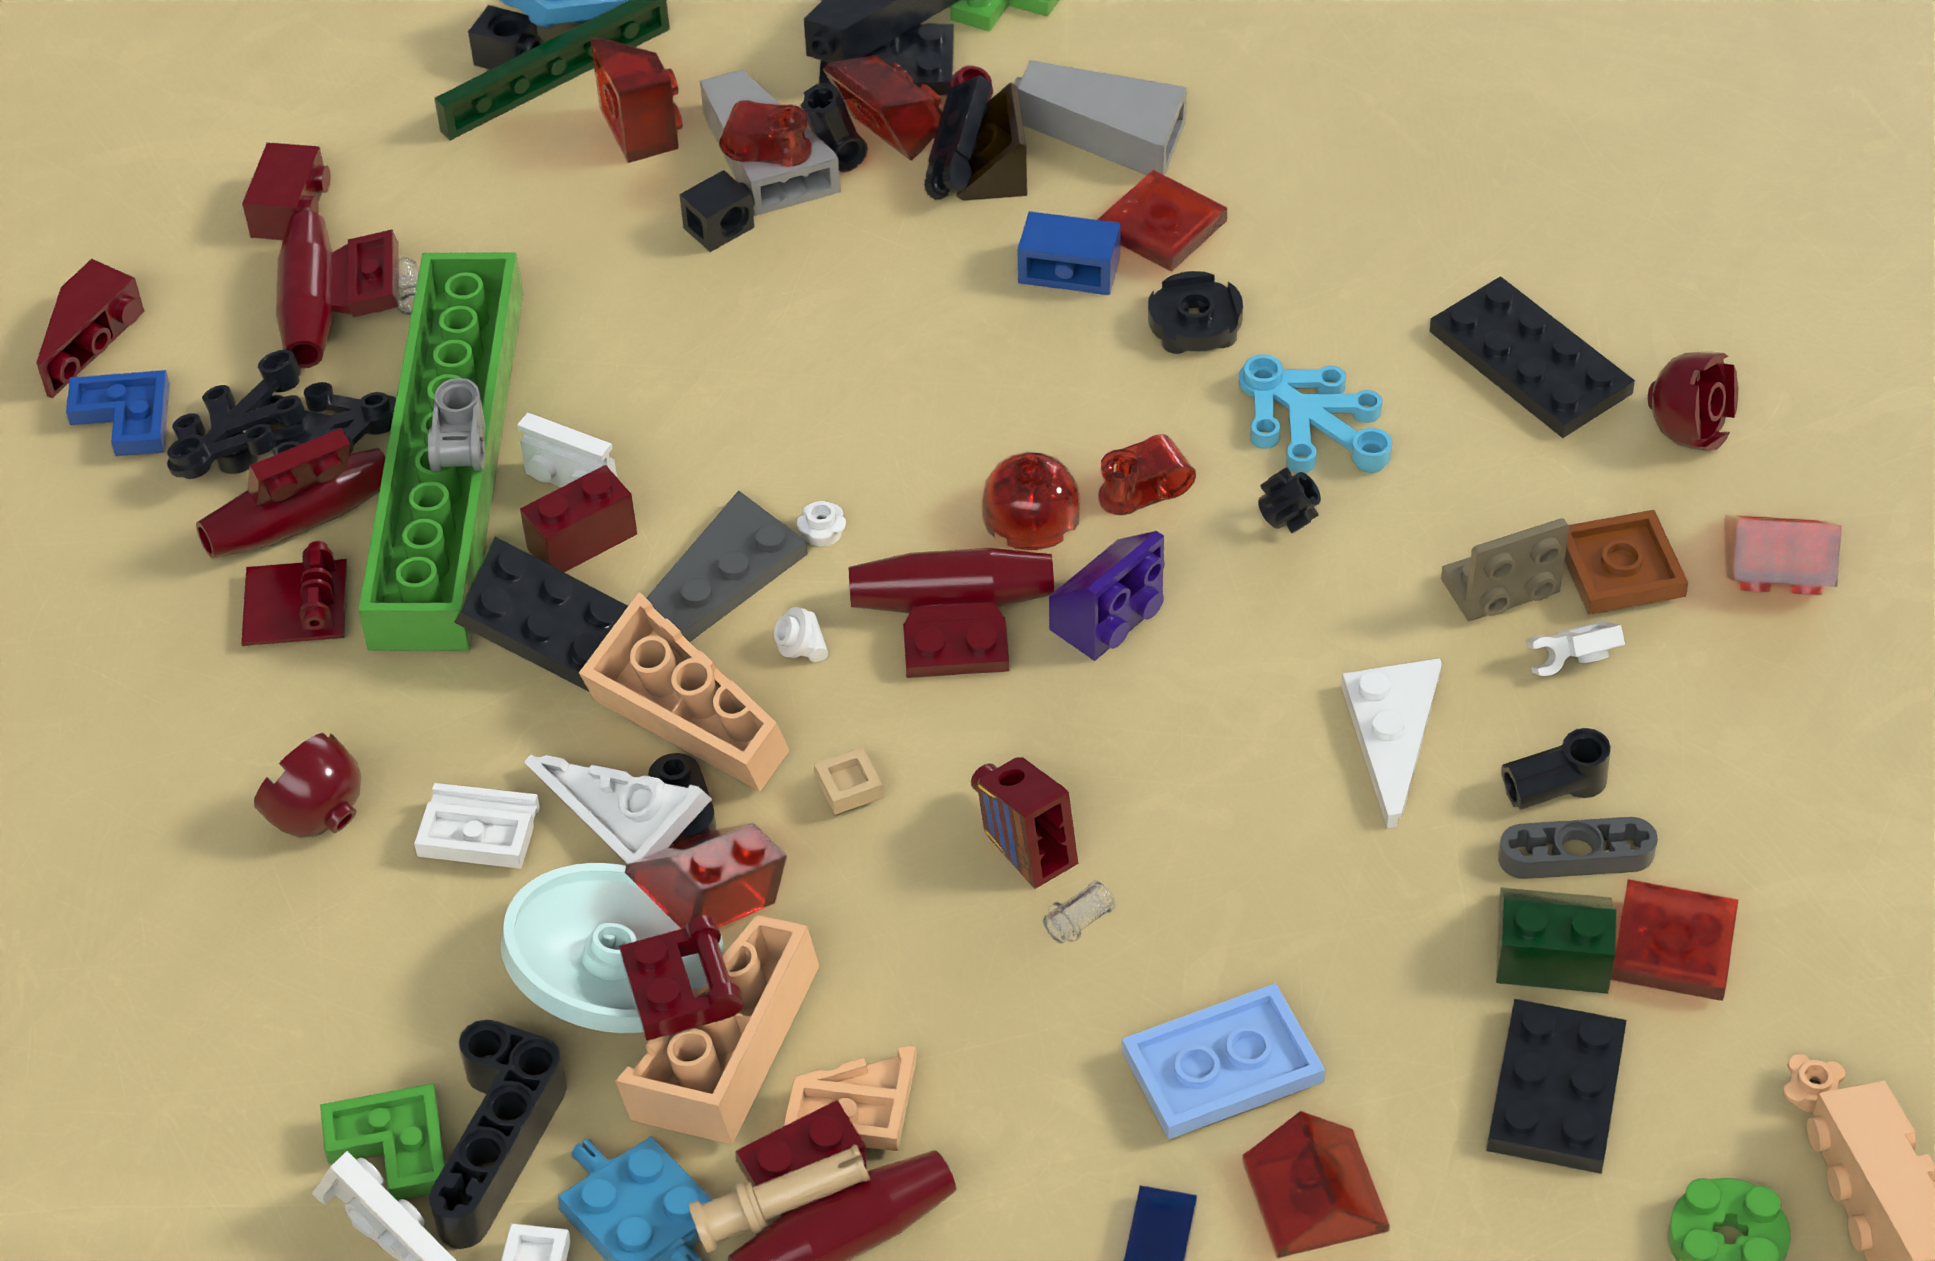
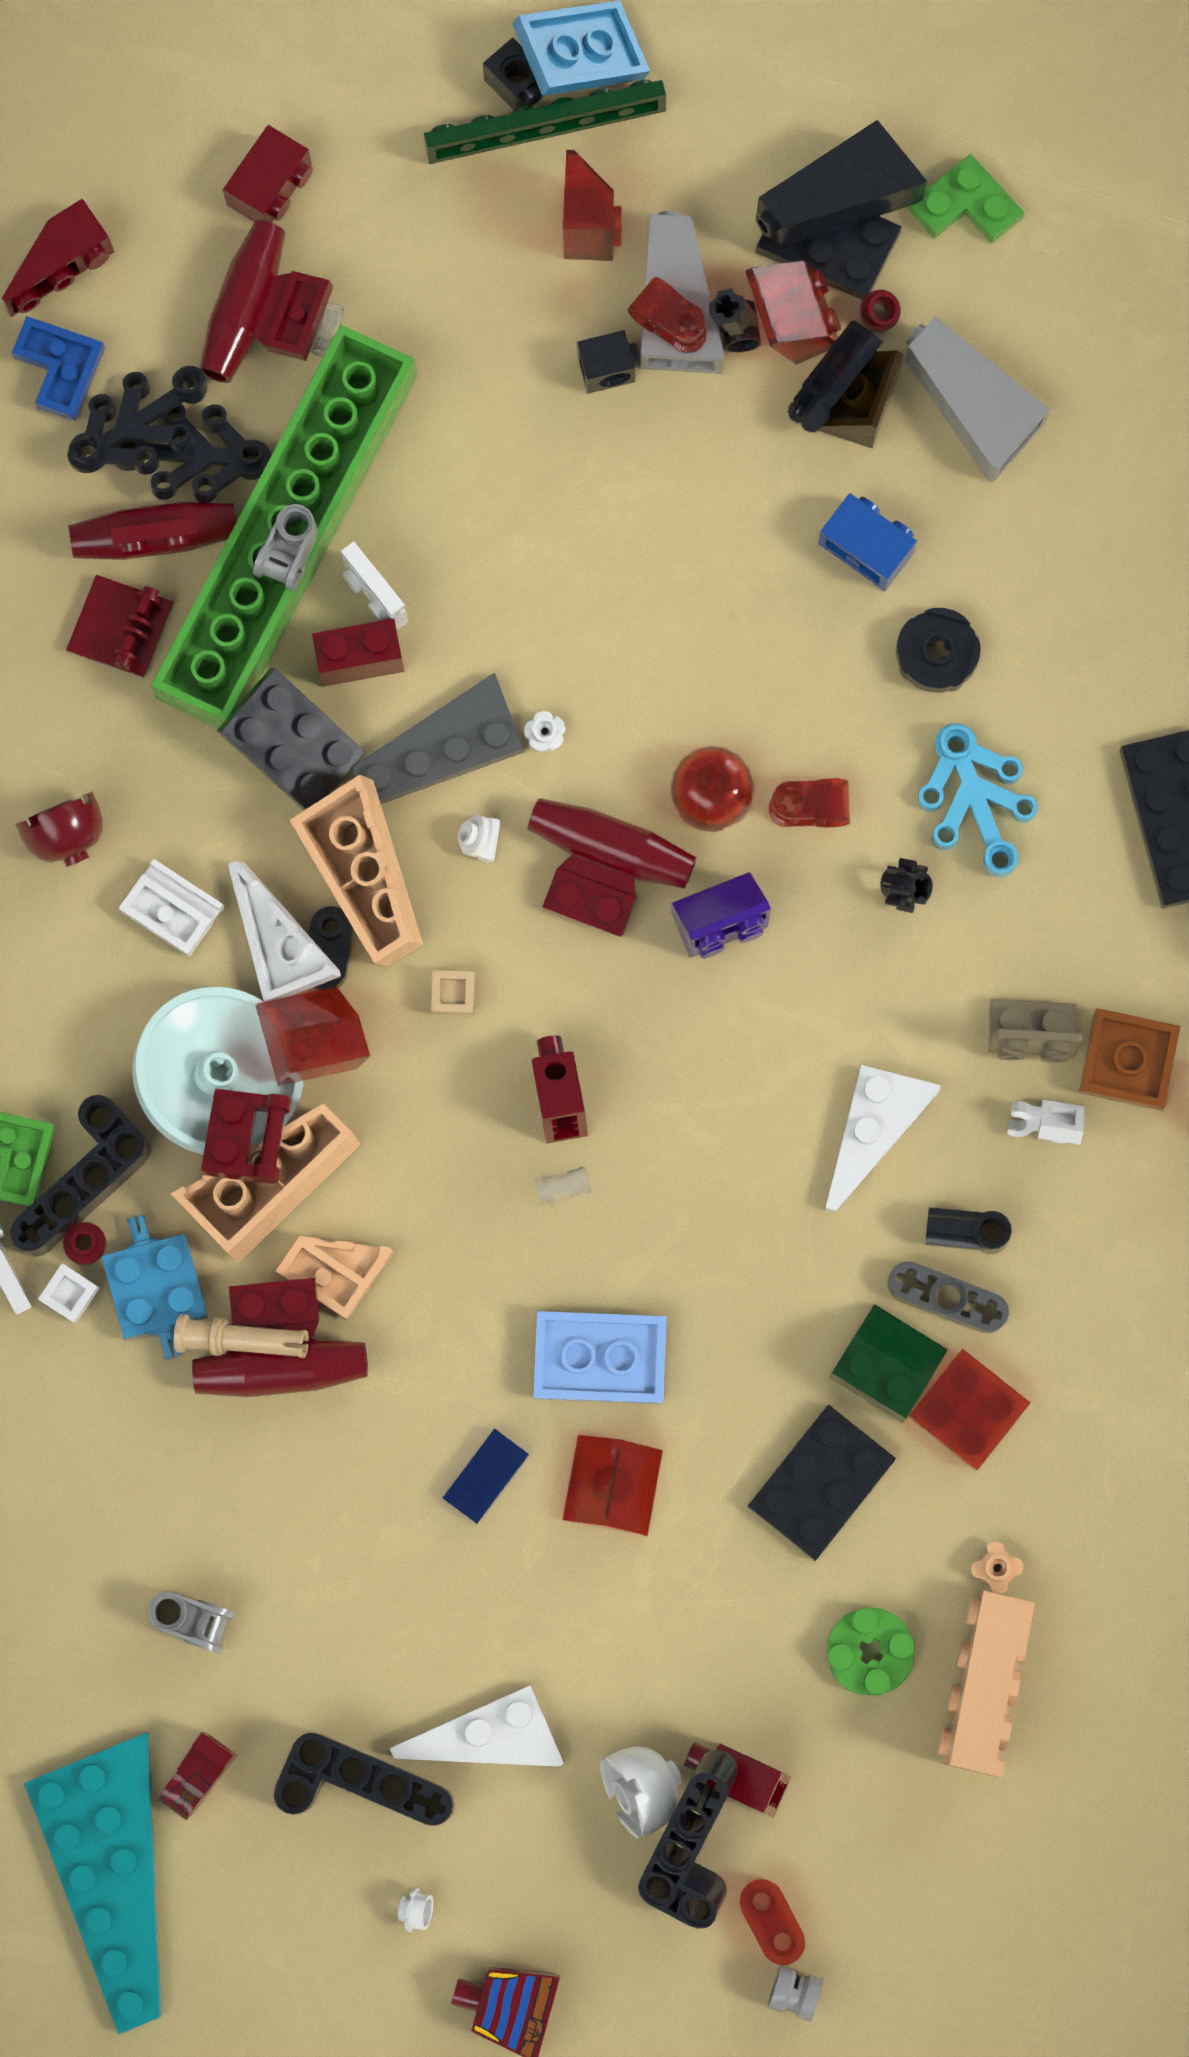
camera: 25 degrees right, 30 degrees up
(534, 1211) = (96, 1249): none -> dark red plate
(1165, 219) = (962, 537): clear red plate -> none

